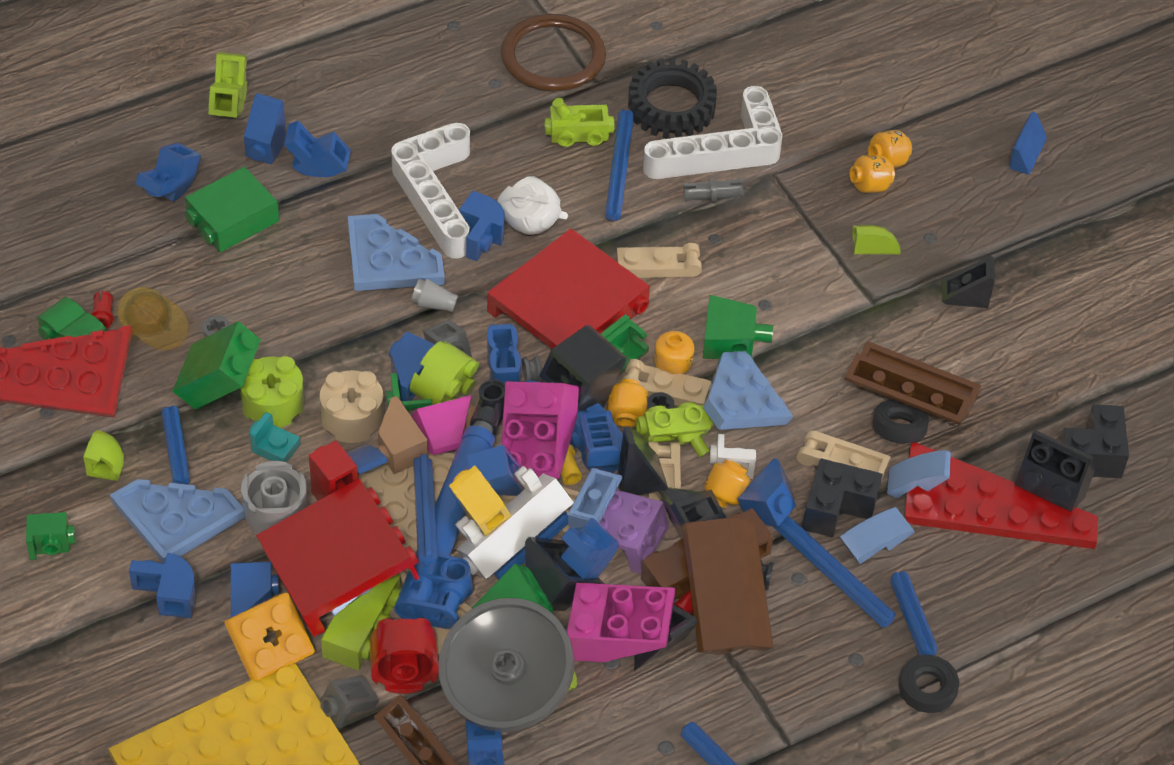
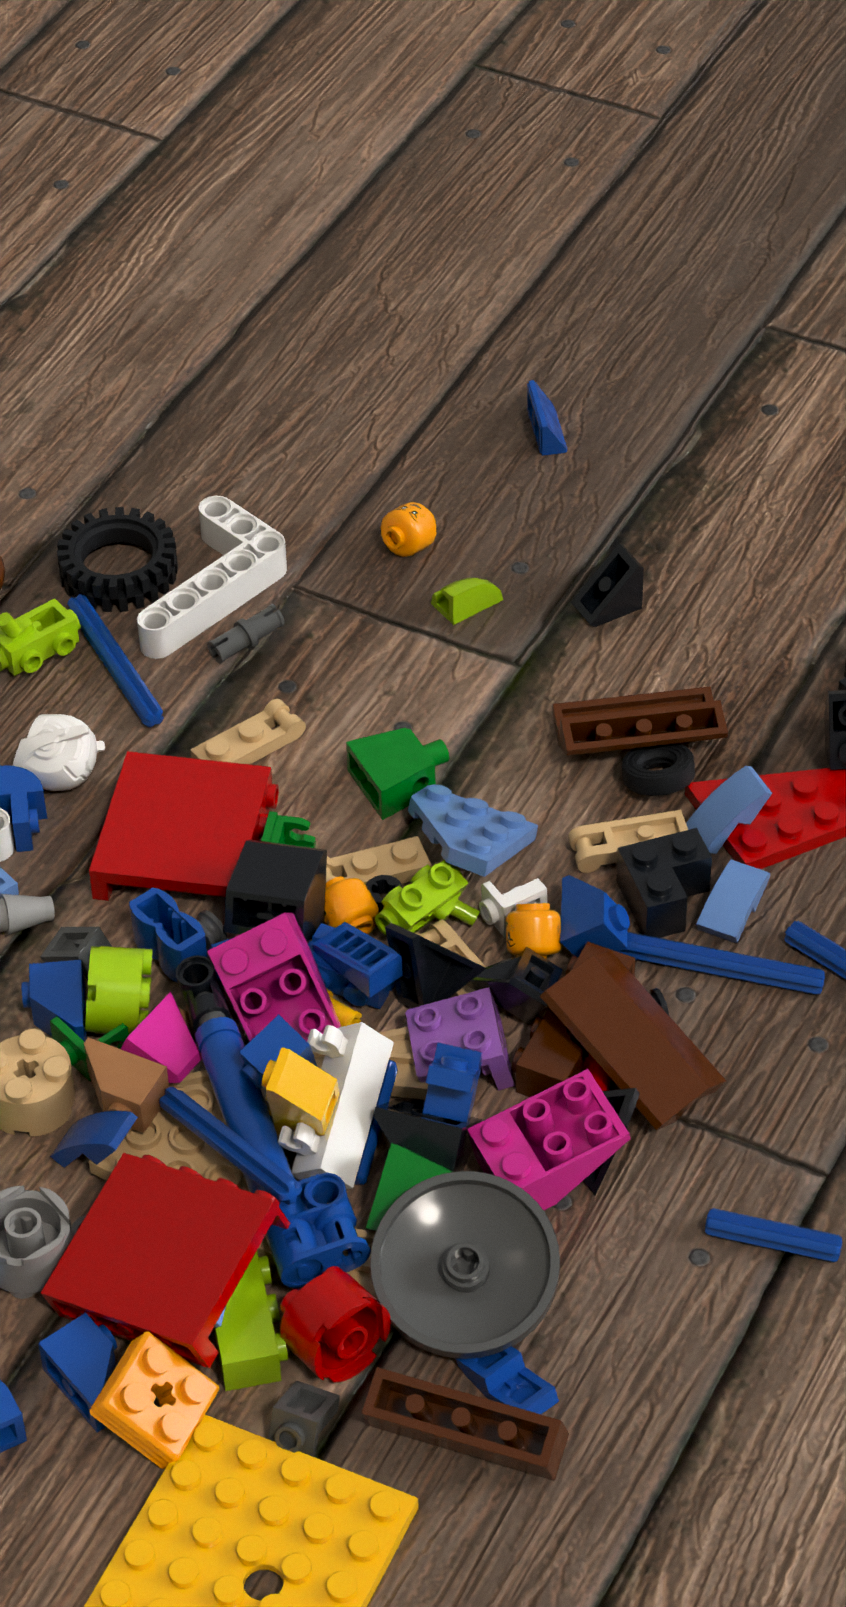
camera: 30 degrees left, 5 degrees down
(330, 470) = (78, 1166): red brick -> none
(593, 497) = (409, 1027): medium blue slope -> none
(674, 352) = (355, 825): light orange head -> none
(892, 145) = (405, 487): light orange head -> none

